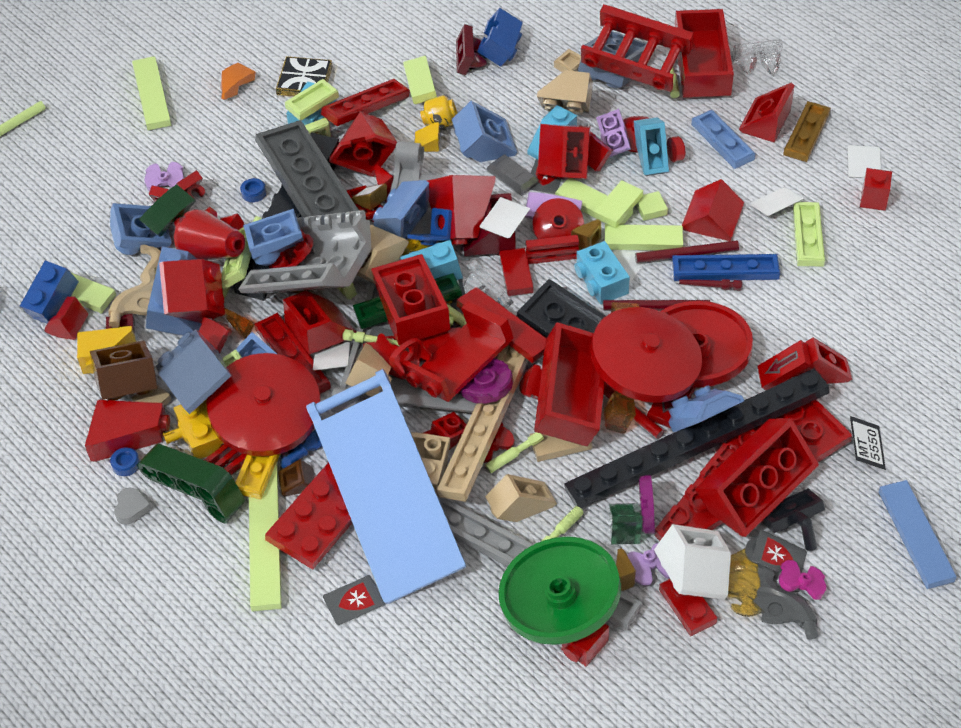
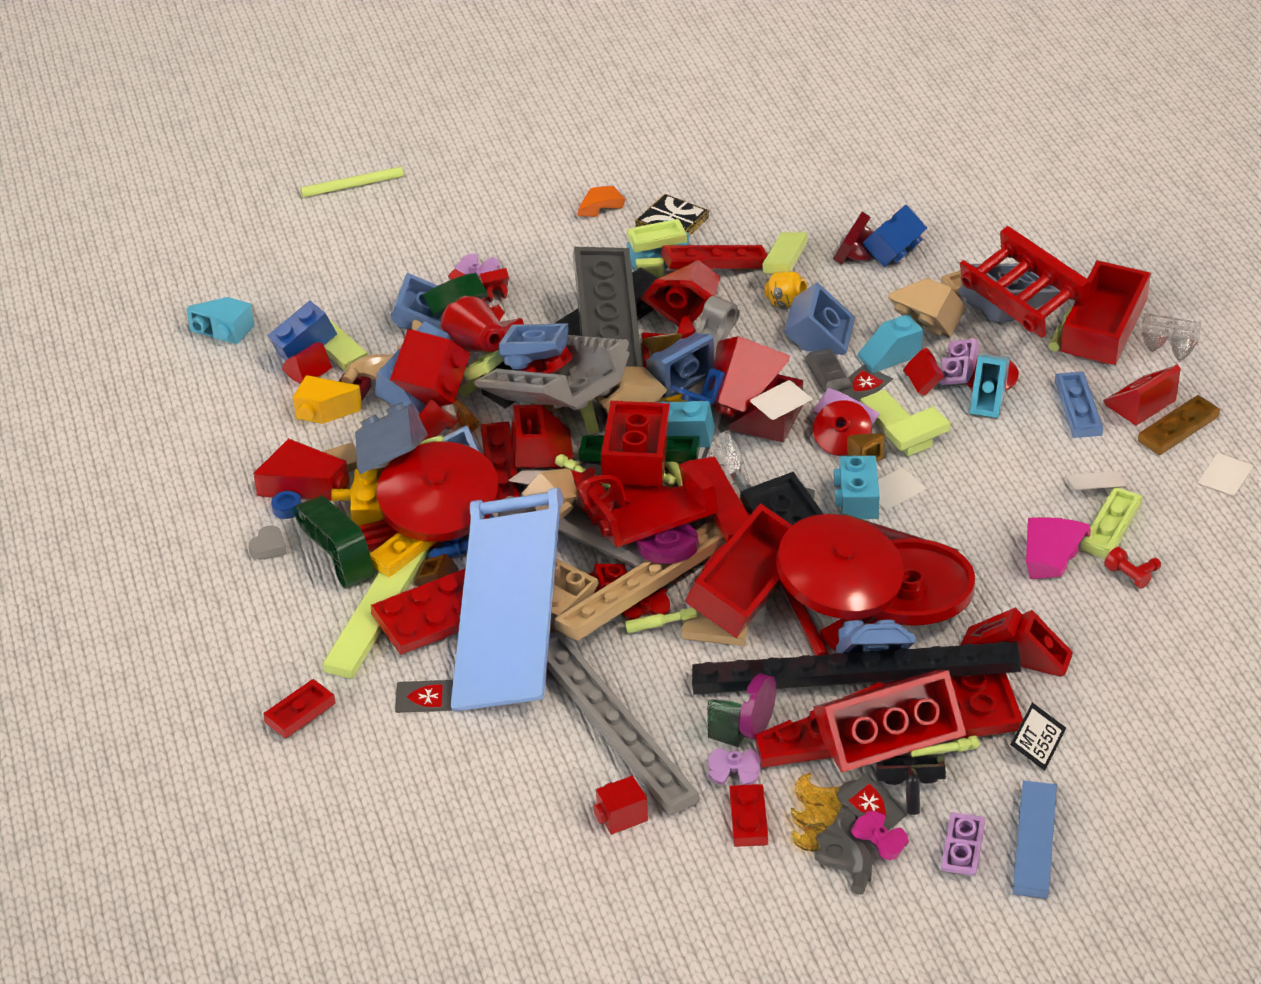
camera: 25 degrees right, 10 degrees down
(123, 370) = (326, 420): reddish brown brick -> none
(151, 93) = (512, 190): yellowish green tile -> none
(253, 190) = (556, 306): blue tile -> none
(254, 657) = (299, 708): none -> red plate
(429, 137) = (761, 311): yellow slope -> none
(516, 272) = (771, 459): red tile -> none
(519, 498) = (638, 660): tan slope -> none
(552, 249) = (818, 451): red tile -> none
(559, 590) = (616, 747): green dish -> none
(564, 150) = (891, 360): red slope -> none
(566, 523) = (663, 702): yellowish green piece -> none
(619, 412) = (789, 619): clear orange slope -> none
(625, 569) = (695, 761): pearl gold slope -> none
(644, 237) = (927, 470): yellowish green tile -> none
(652, 206) = (955, 444): yellowish green tile -> none
(675, 149) = (1016, 396): red tile -> none
(690, 250) = (965, 498): dark red bar -> none
(695, 561) = (772, 772): white slope -> none
(714, 211) = (1021, 470): red slope -> none
(725, 284) = (984, 541): dark red piece -> none
(726, 267) = (983, 522): blue tile -> none
(780, 270) = (1052, 545): none -> dark pink slope
(808, 480) = (957, 745): none -> yellowish green piece
(855, 271) = (1118, 560): none -> red piece
(867, 563) = (963, 844): none -> lavender slope
(876, 189) = (1213, 500): red brick -> none

